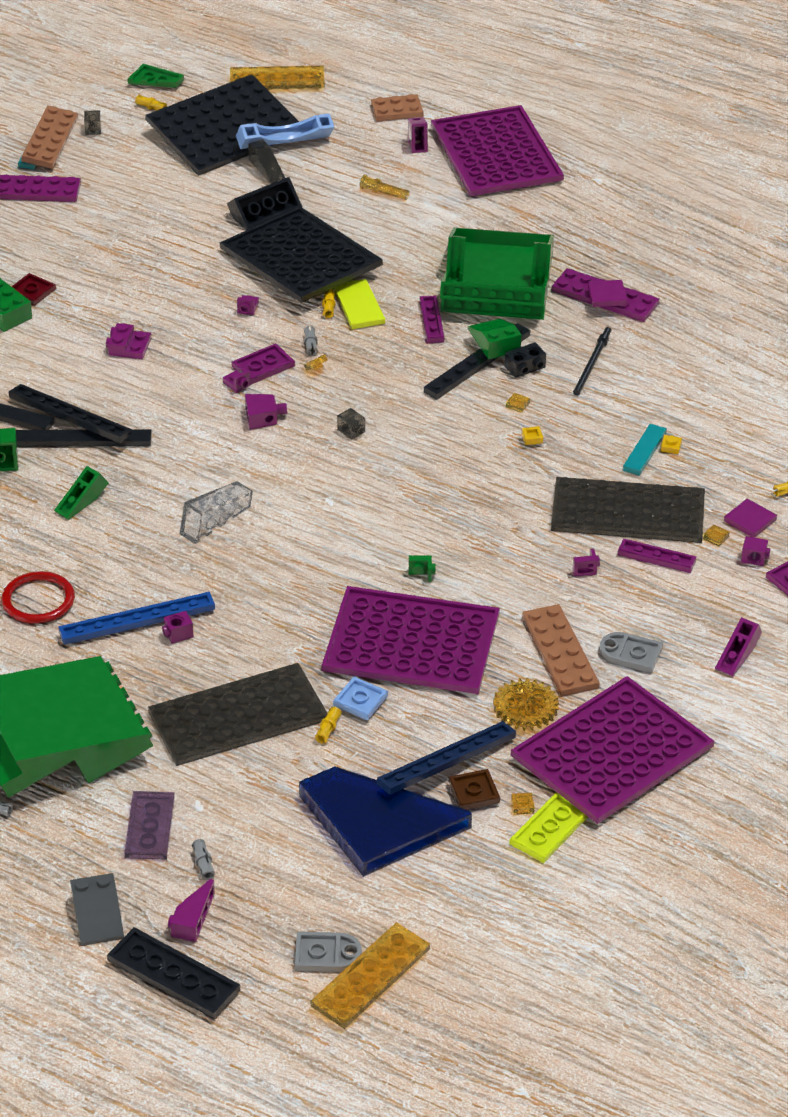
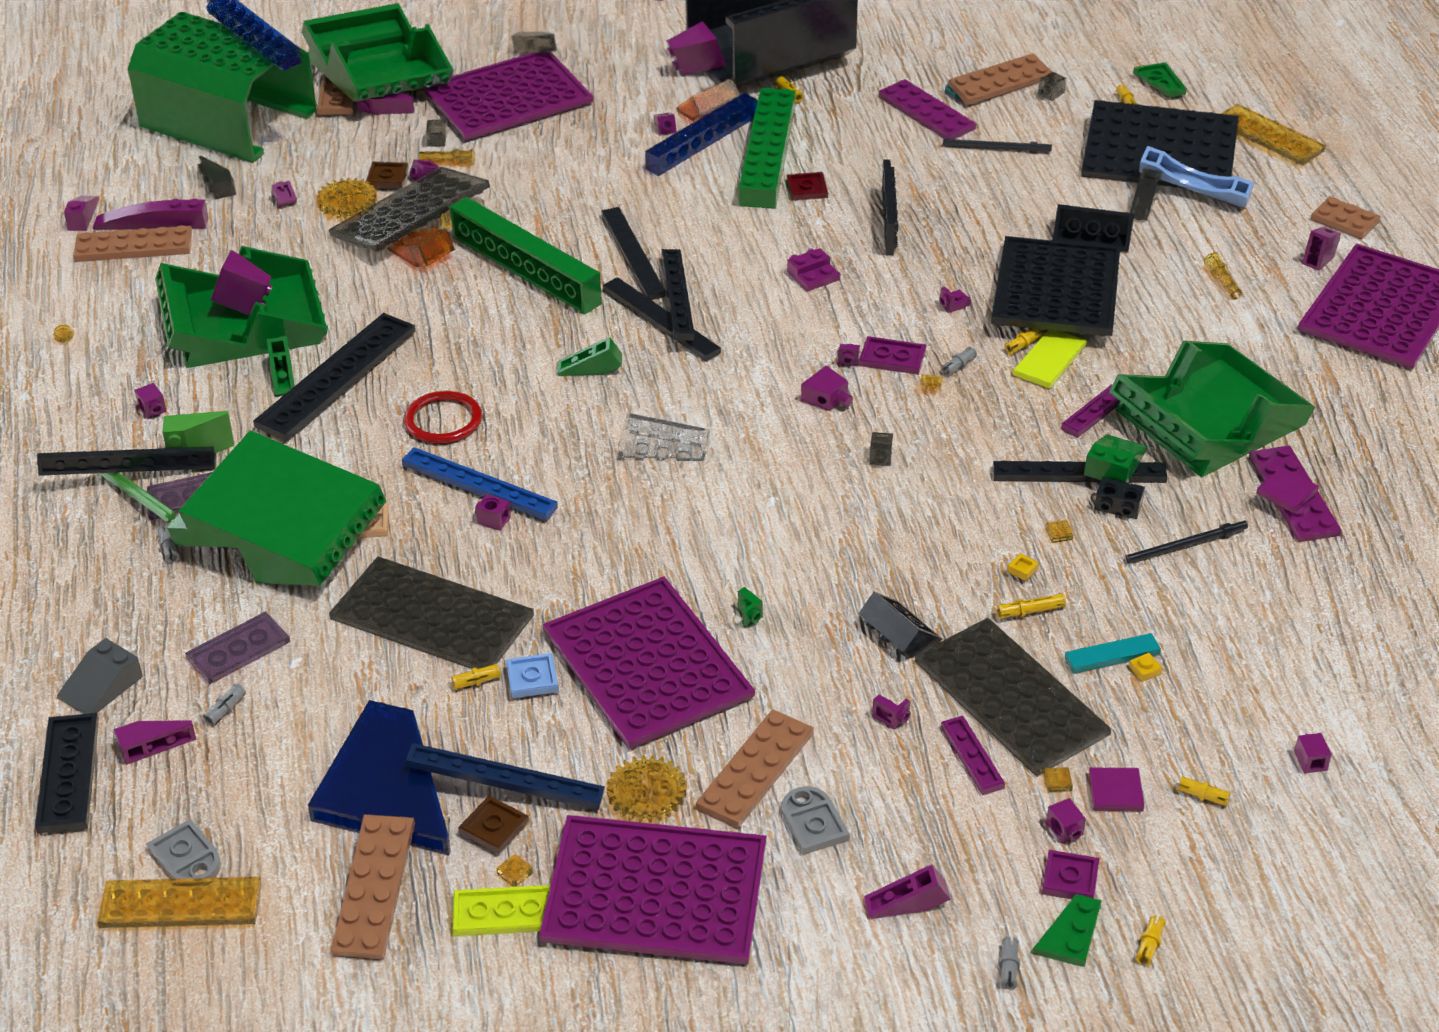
camera: 50 degrees right, 0 degrees up
(121, 267) = (890, 210): none -> black plate
(140, 173) = (1032, 146): none -> black bar
(469, 871) = (373, 887): none -> nougat plate
(519, 516) = (898, 625): none -> black slope
(565, 457) = (1023, 607): none -> yellow pin

